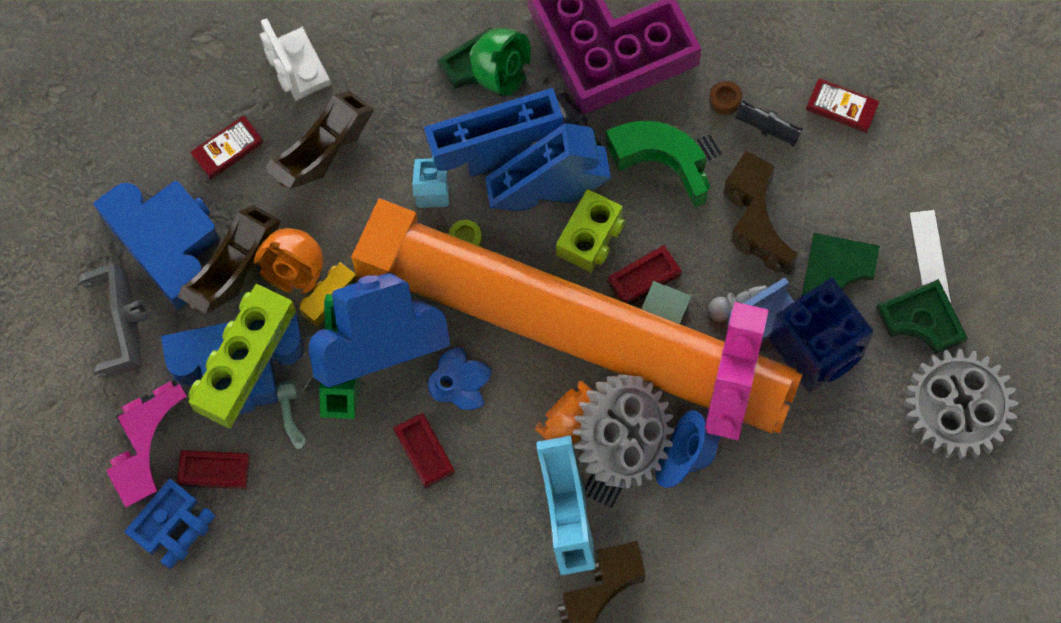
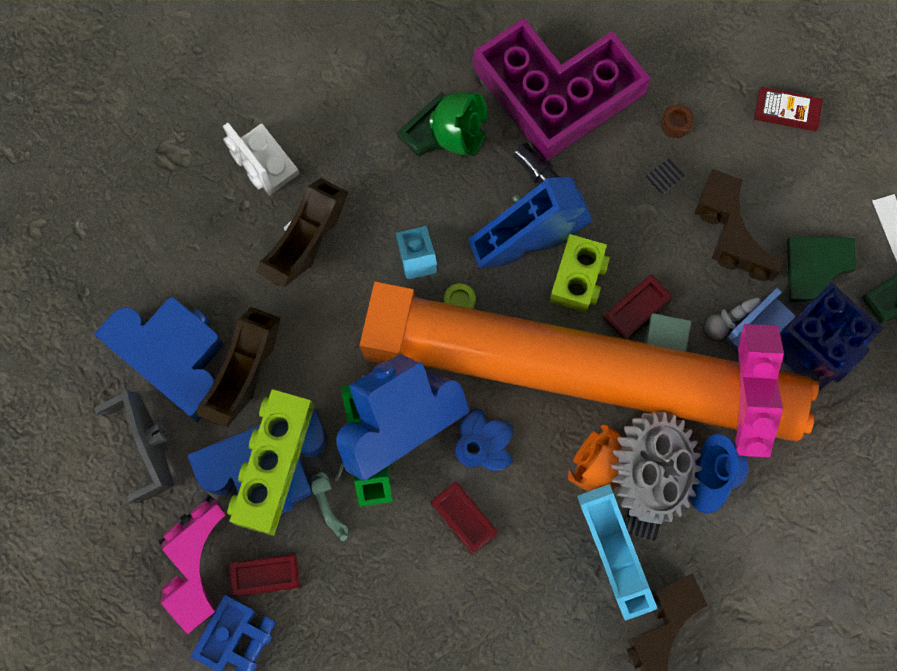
camera: 10 degrees left, 5 degrees up
(227, 147) = (213, 253): tile -> none
(290, 260) = (298, 354): orange cylinder -> none
(313, 306) = (344, 373): yellow piece -> none
(493, 134) = (473, 196): blue brick -> none
(664, 144) = (631, 177): green arch -> none
(768, 123) = (724, 138): black pin -> none

